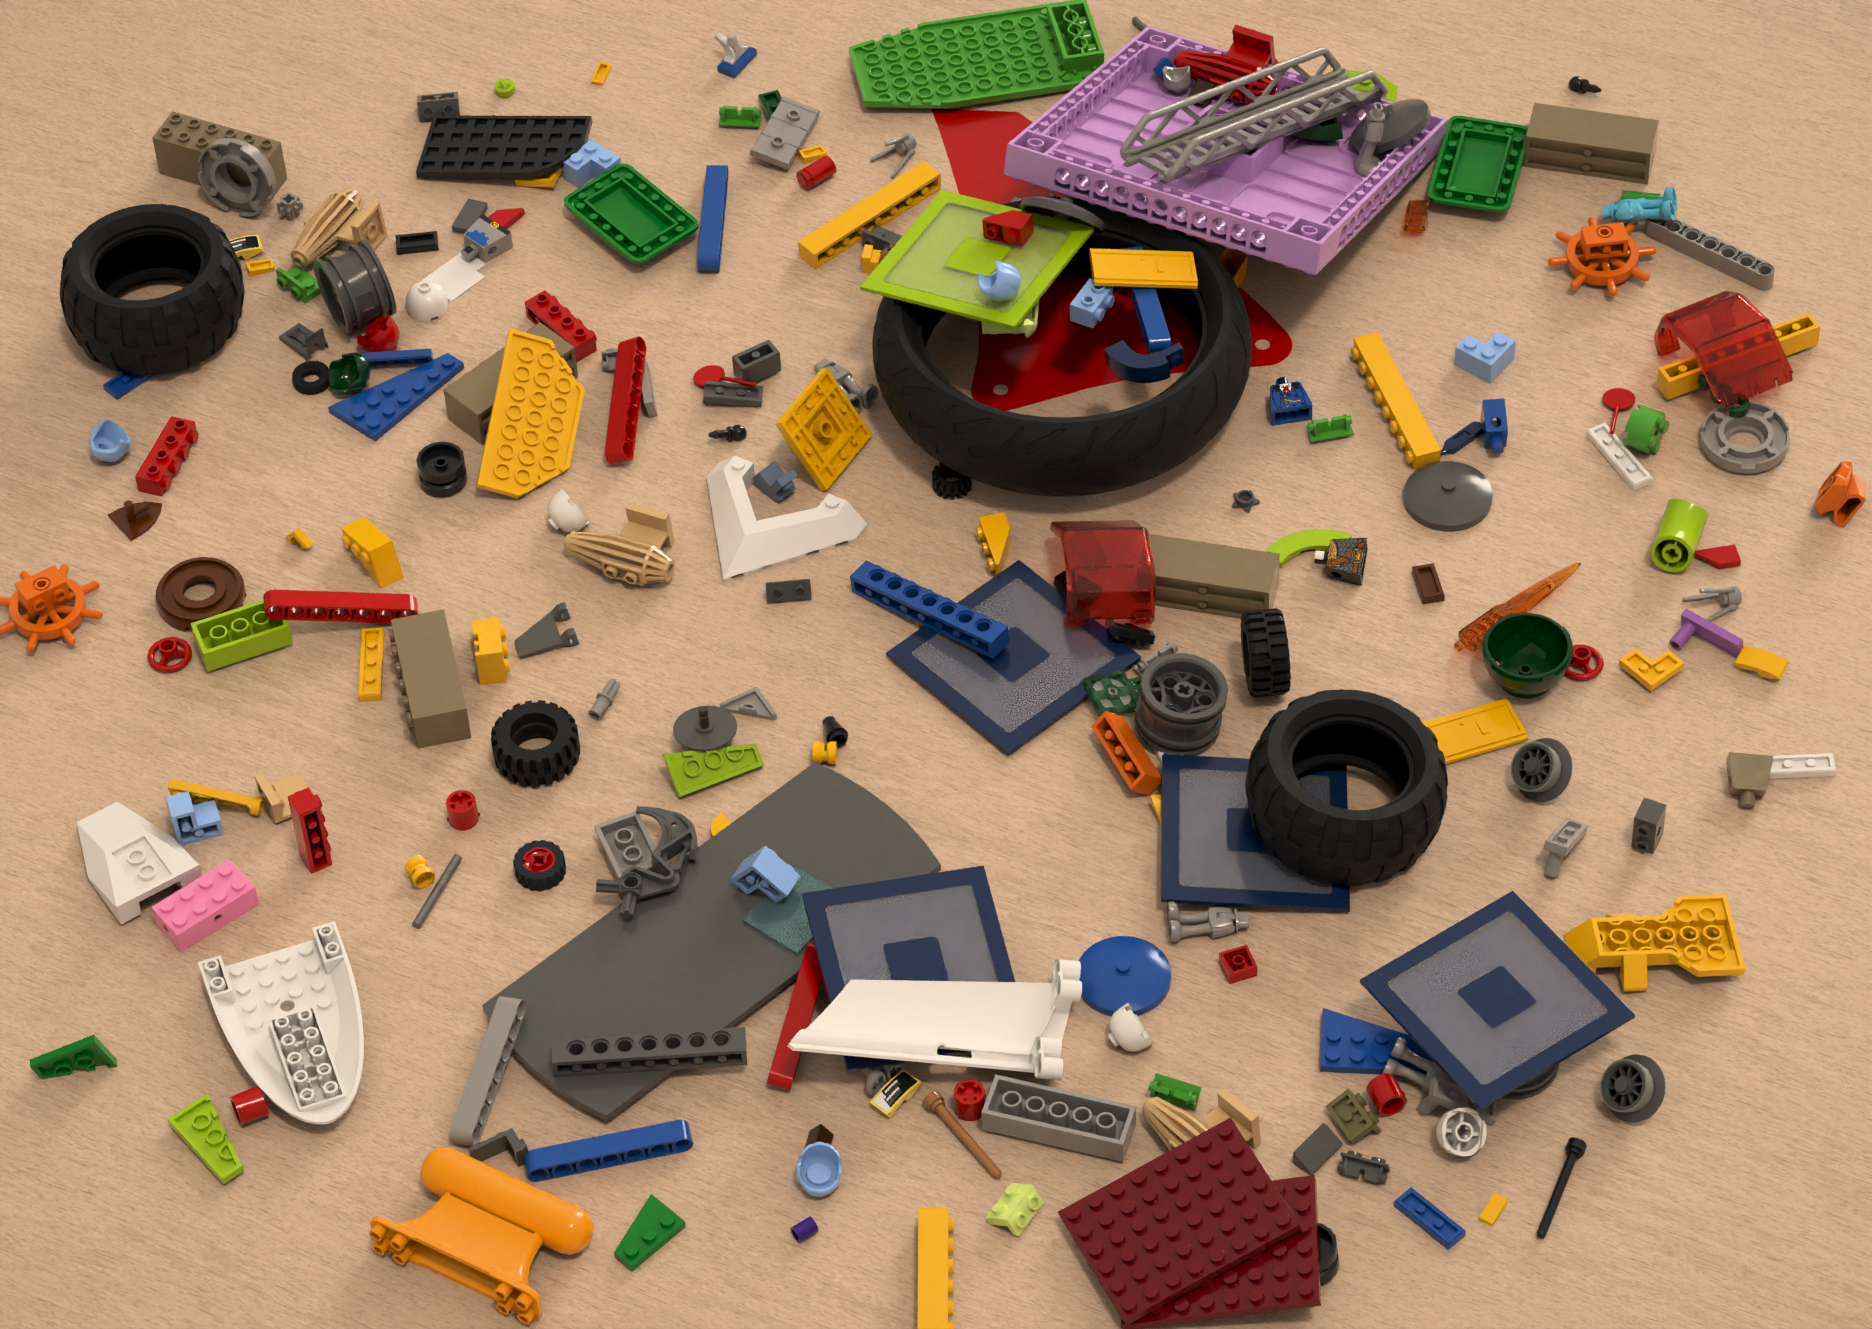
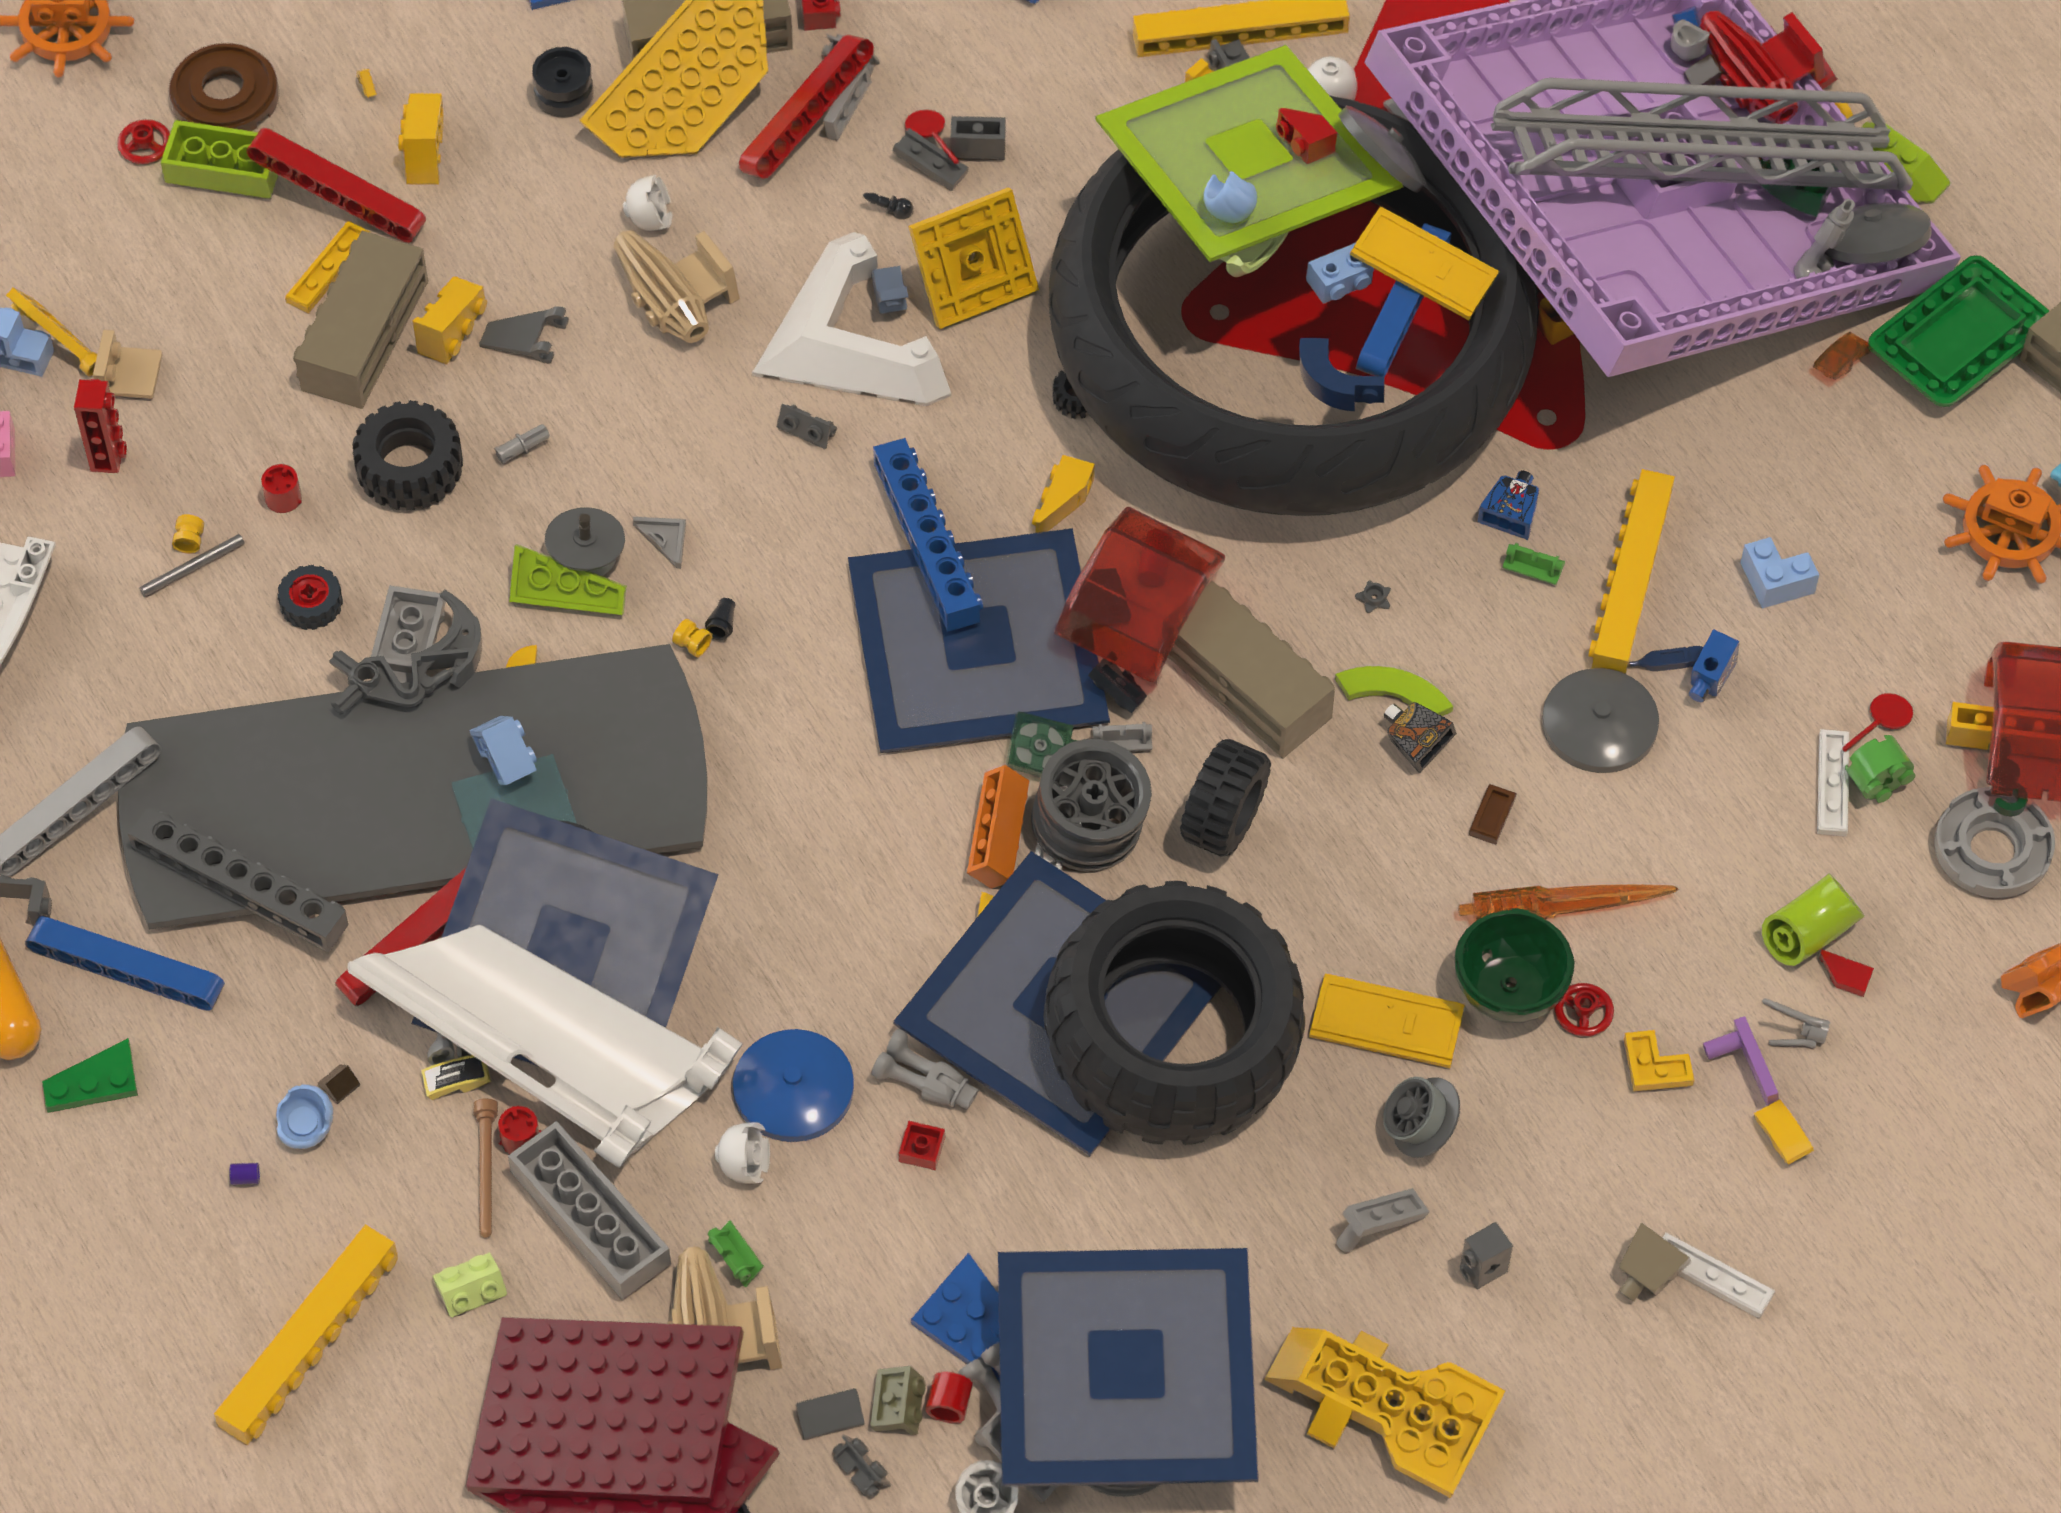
camera: 30 degrees right, 10 degrees up
(860, 396) = (1049, 202): light grey piece -> none

